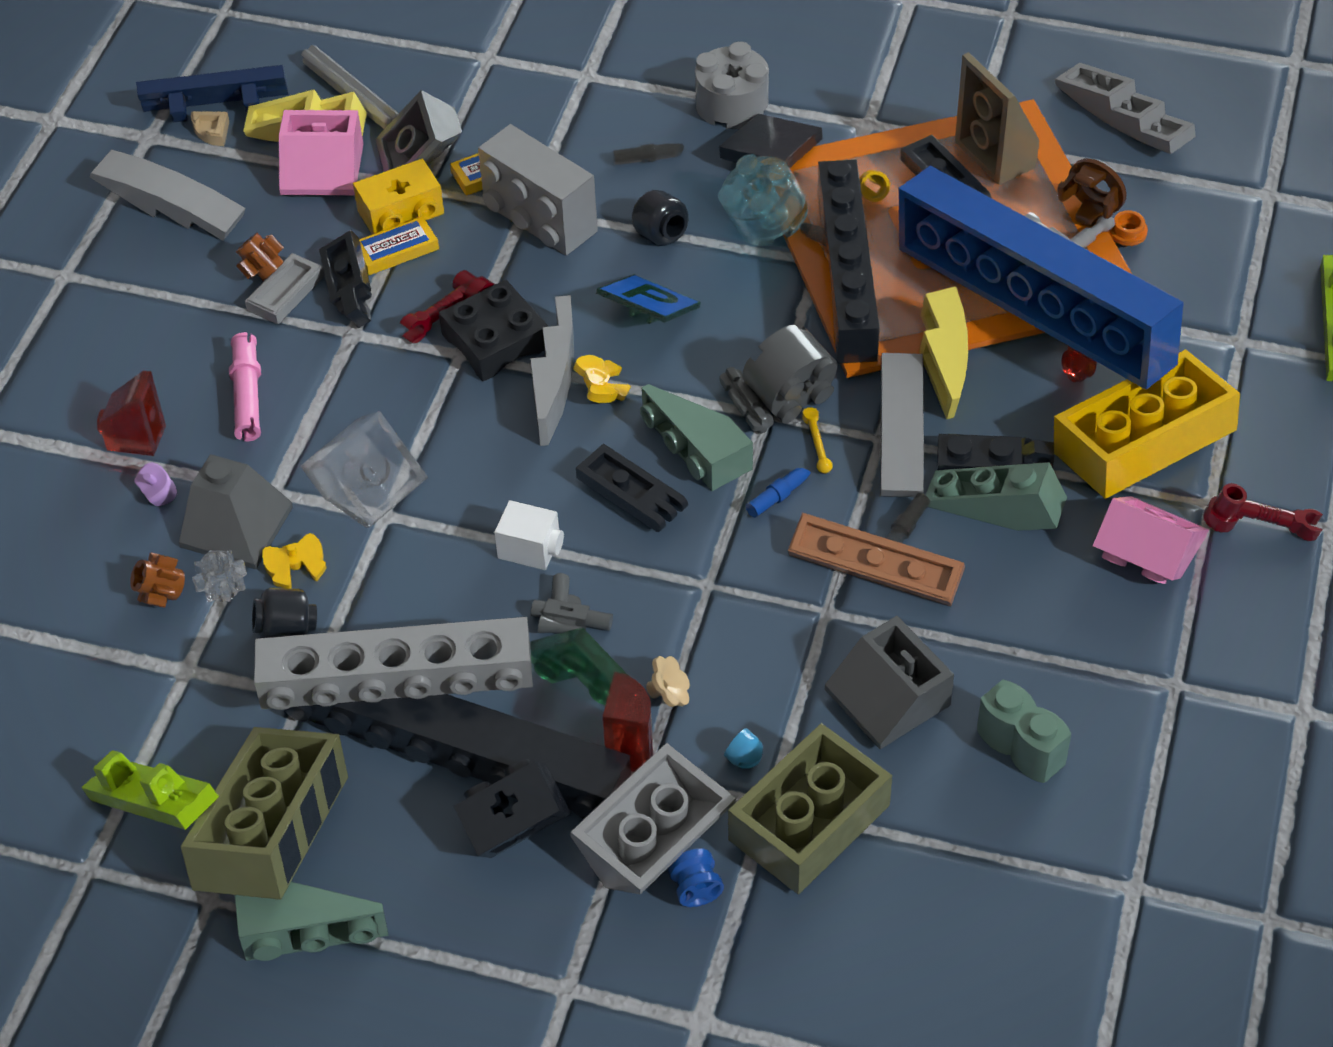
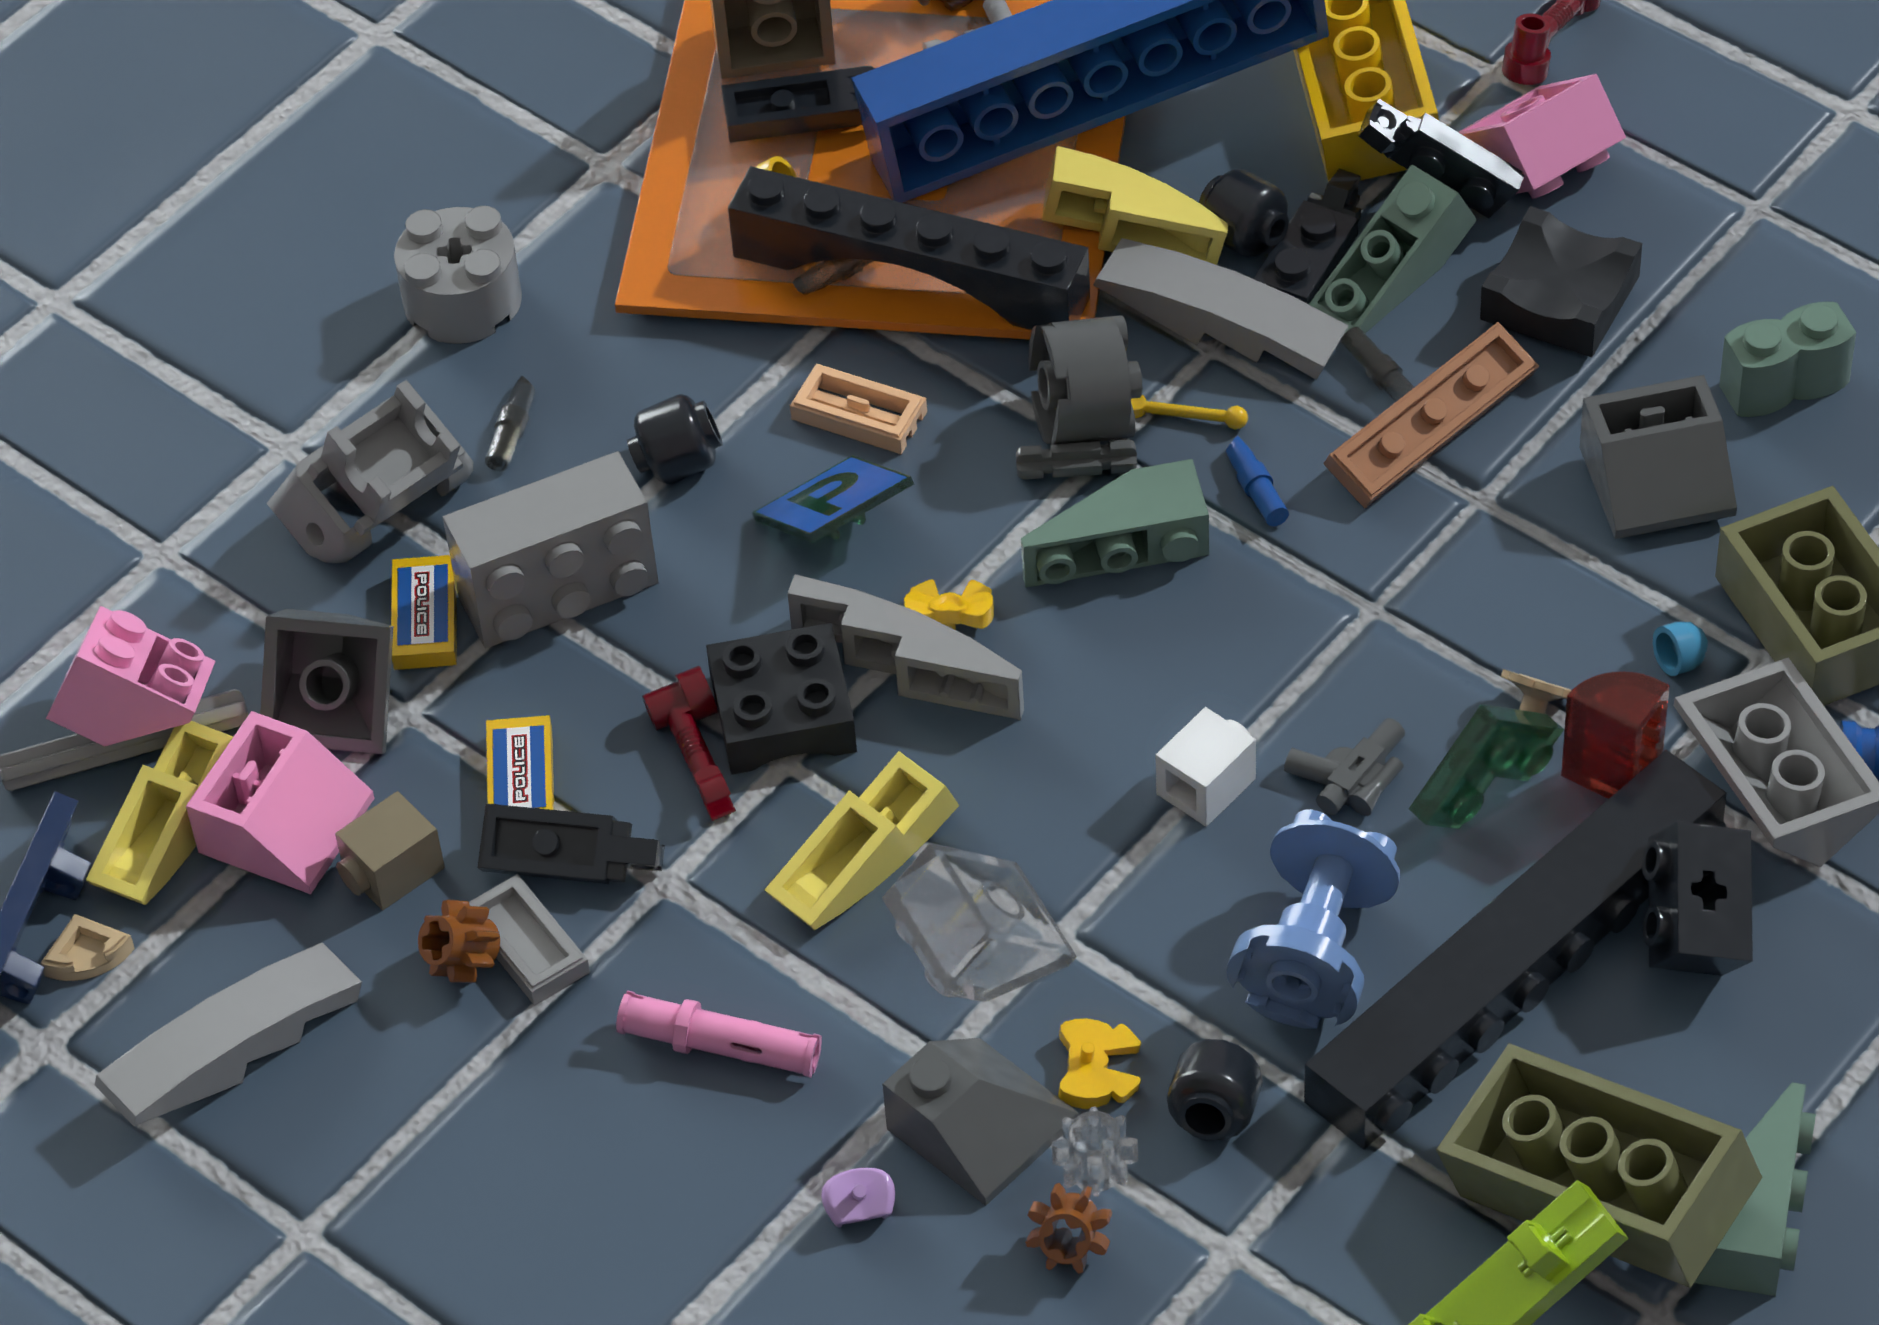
camera: 65 degrees left, 0 degrees up
(133, 417) = (724, 1178): clear red slope -> none
(313, 209) = (388, 851): none -> dark tan brick
(316, 666) = (1442, 854): light grey brick -> none
(367, 60) = (129, 681): none -> bright pink slope
(398, 196) = (435, 735): yellow brick -> none
(399, 611) = (1299, 966): none -> medium blue piece
(406, 400) = (863, 842): none -> light yellow slope
(558, 98) = (383, 467): none -> light grey piece
(630, 487) = (1174, 630): black hinge -> none
(736, 314) = (854, 415): none -> light nougat tile
(763, 199) = (729, 272): clear light blue brick -> none
(771, 137) = (602, 269): black tile -> none
(983, 406) = (1251, 208): none -> black head
(1022, 588) = (1560, 283): none -> black brick
(1077, 365) = (1203, 115): clear red plate -> none
(1077, 477) = (1443, 153): none -> black hinge

